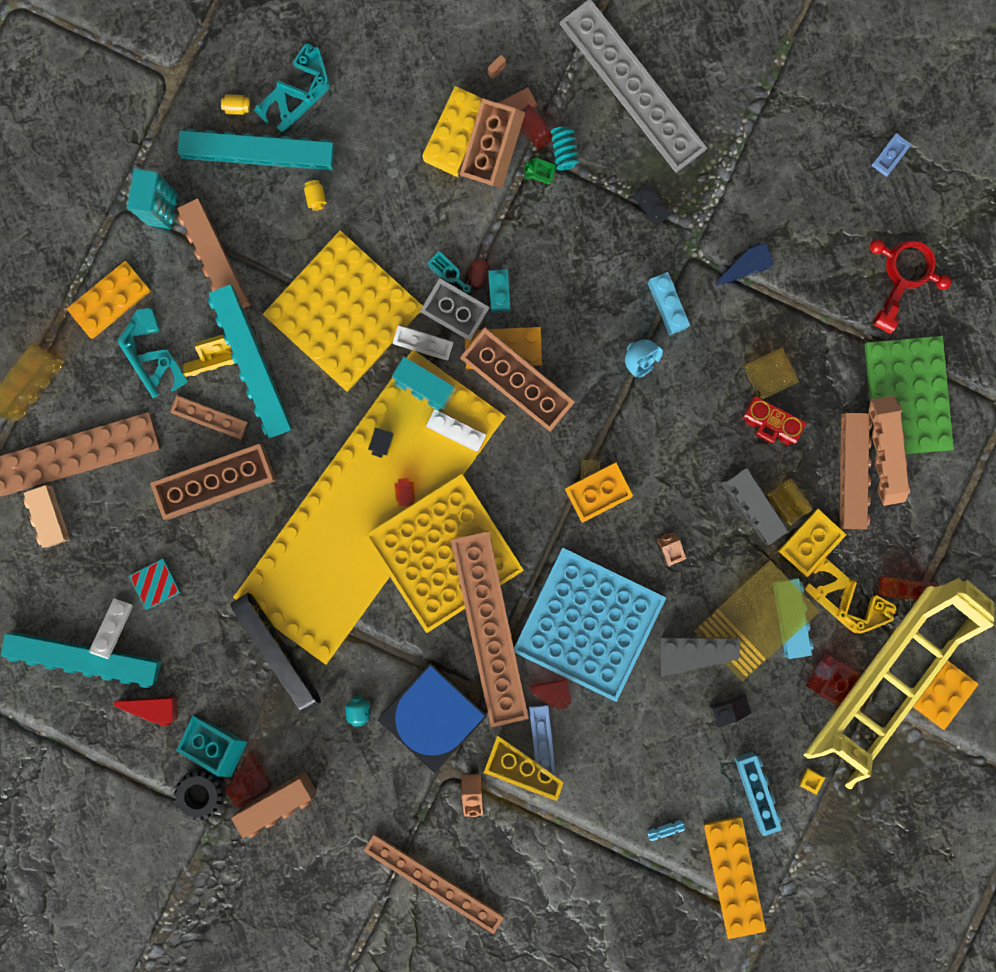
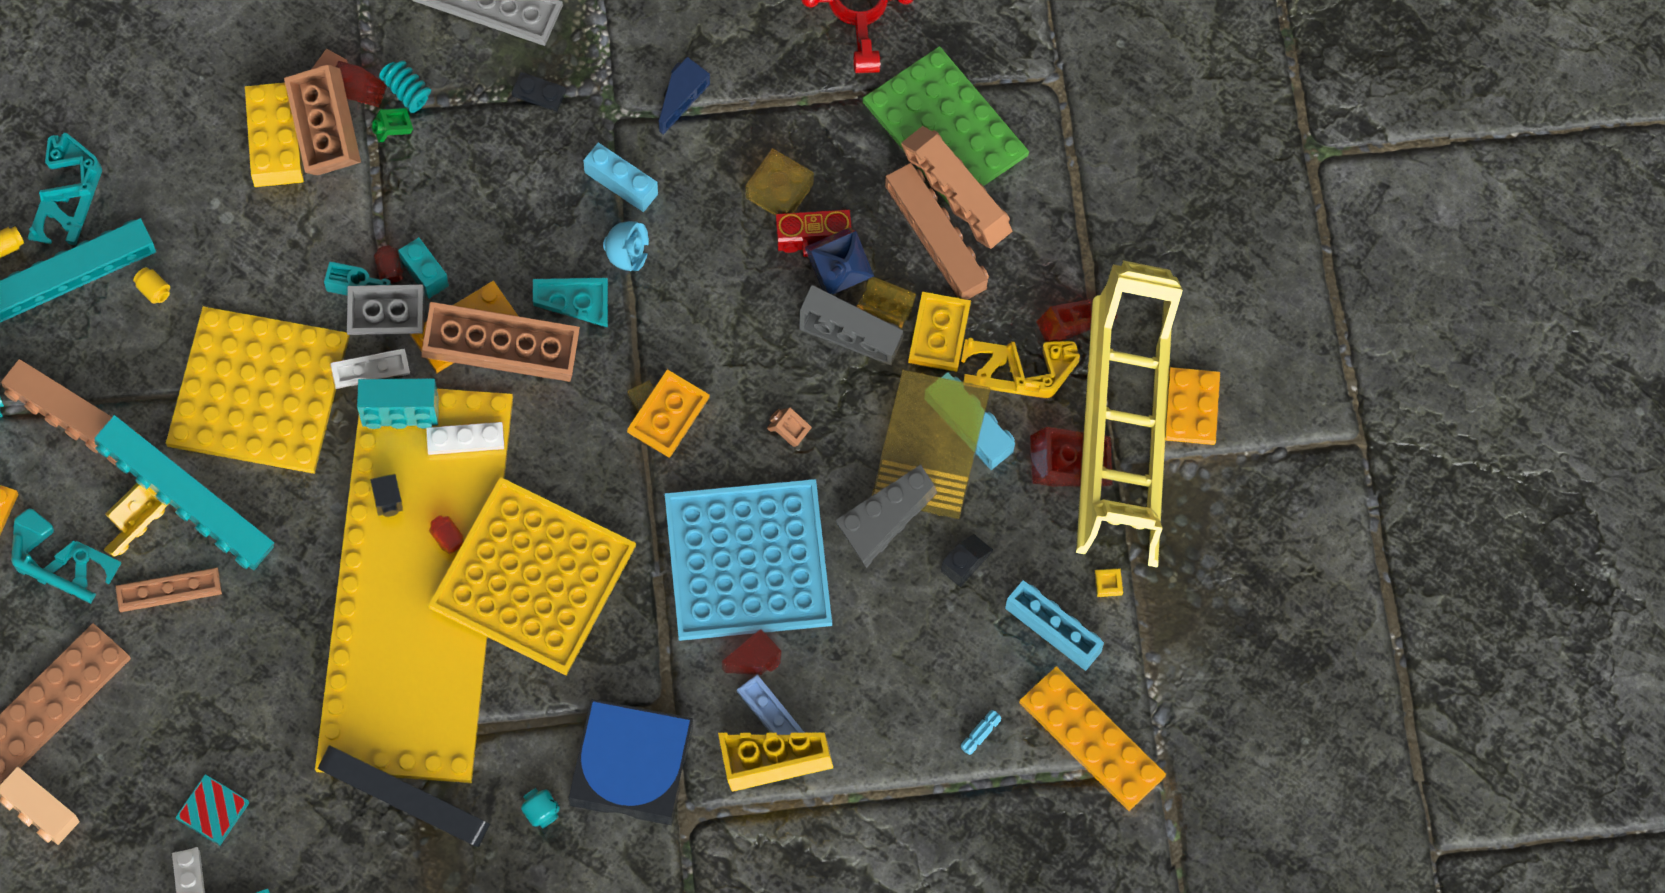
camera: 35 degrees left, 20 degrees down
(213, 481) = (216, 650): nougat brick -> none
(472, 795) = (732, 824): nougat slope -> none
(489, 628) = (636, 625): nougat plate -> none
(496, 67) = (278, 46): nougat tile -> none
(586, 372) = (574, 297): none -> teal wing
(776, 456) = (839, 261): none -> dark blue piece

